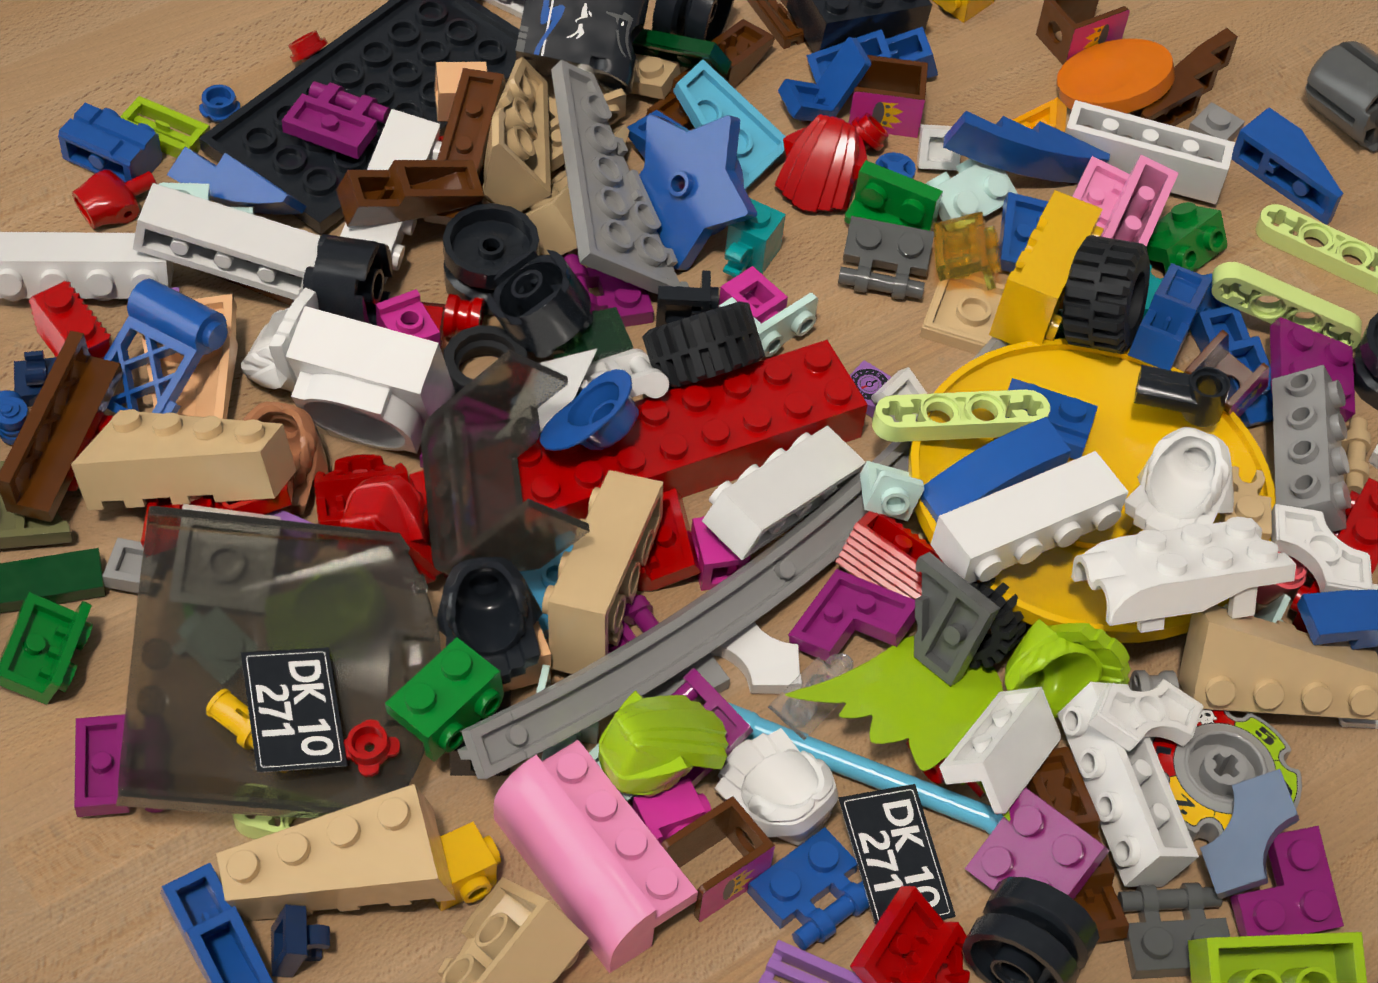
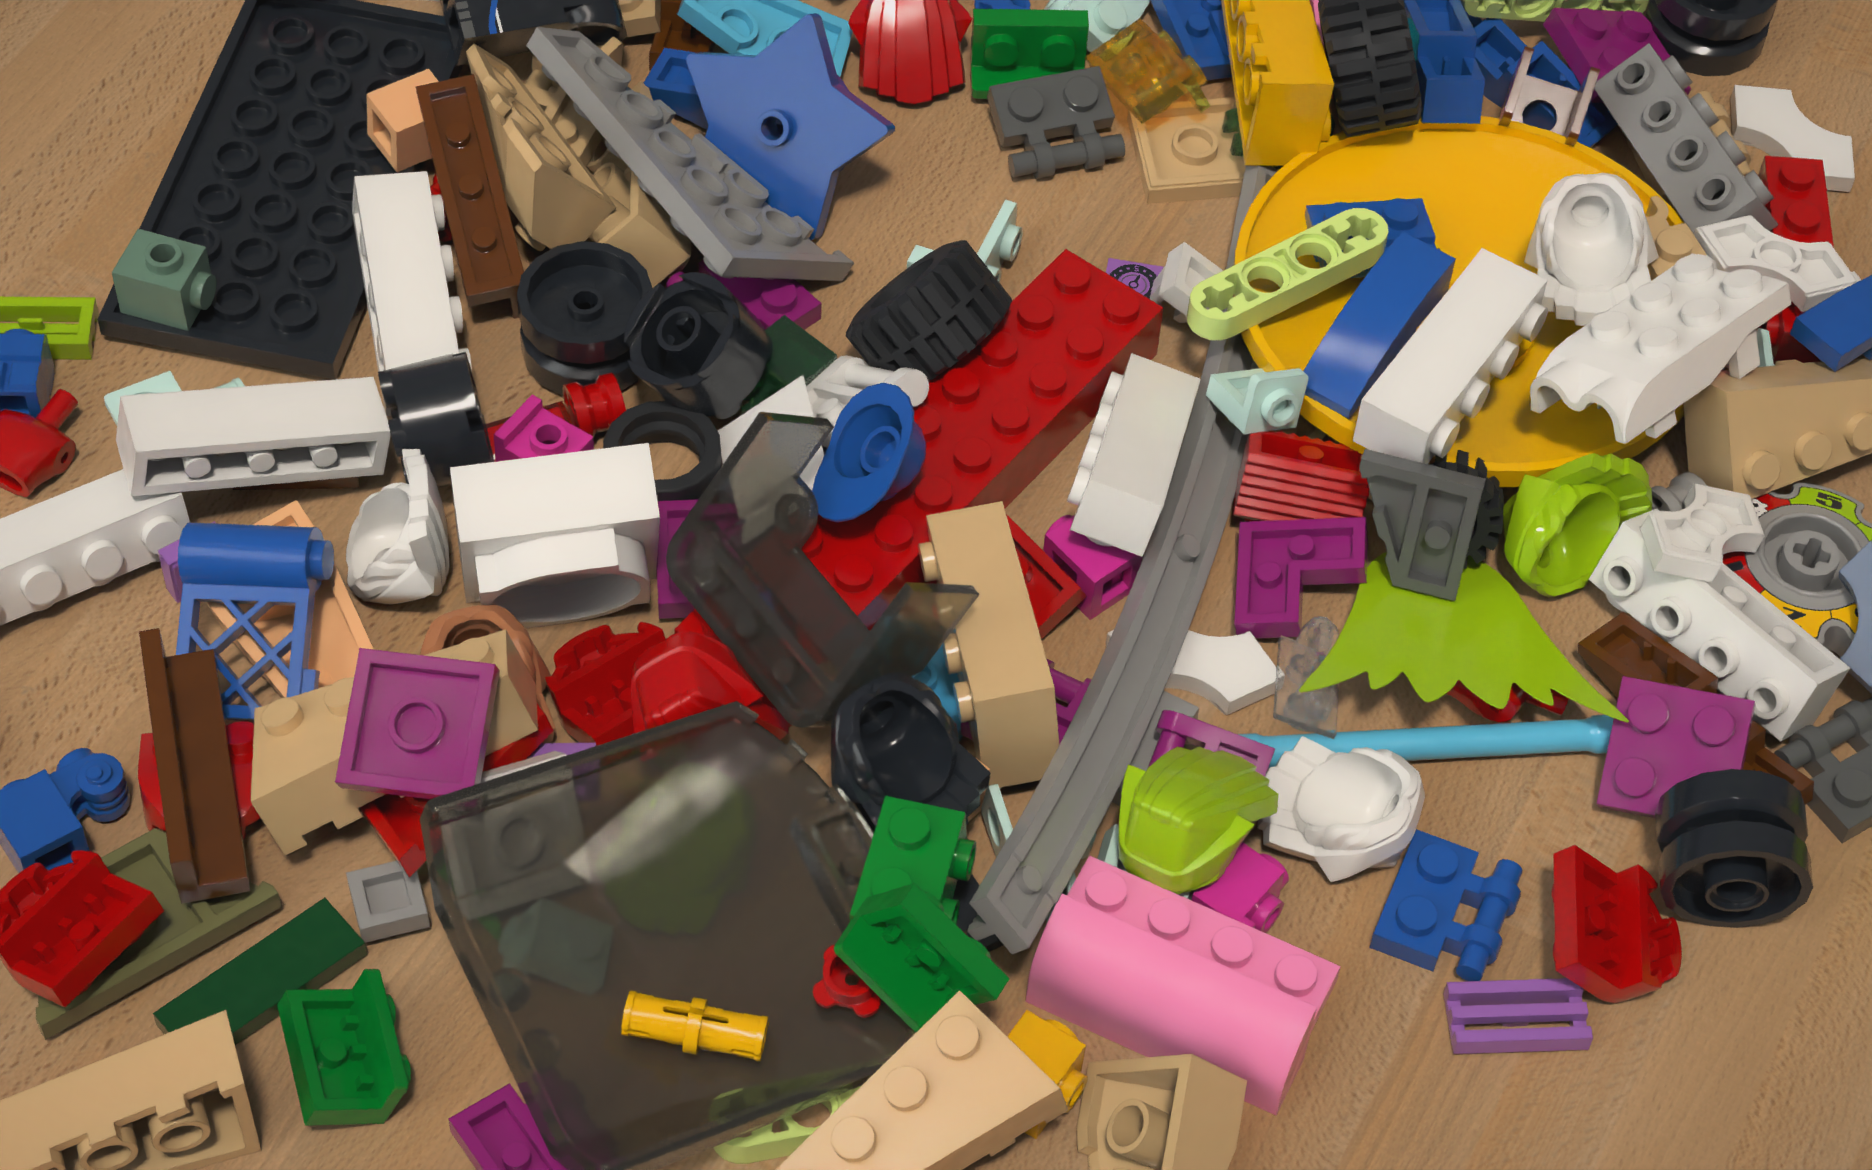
camera: 25 degrees left, 0 degrees up
(31, 375) = (93, 719): dark blue tile -> none
(62, 310) = (97, 637): red brick -> none
(184, 457) = (416, 724): none -> magenta plate
(218, 103) = (87, 264): blue plate -> none
(234, 184) = (194, 355): slope -> none
(245, 128) = (164, 280): none -> sand green brick
(293, 709) = (732, 976): black sticker -> none
(306, 46) = (156, 143): red plate -> none
(335, 119) = (270, 221): magenta plate -> none
(403, 749) = (916, 955): none -> green bracket
(408, 191) = (445, 274): reddish brown slope -> none
(683, 302) = (855, 279): black bracket -> none
(703, 833) = (1312, 879): reddish brown piece -> none
(754, 240) = (889, 169): teal brick -> none
(756, 290) = (931, 227): dark pink brick -> none
(894, 848) = (1510, 817): black sticker -> none
(1005, 746) = (1566, 638): white panel -> none
(1195, 395) = (1534, 140): black piece -> none

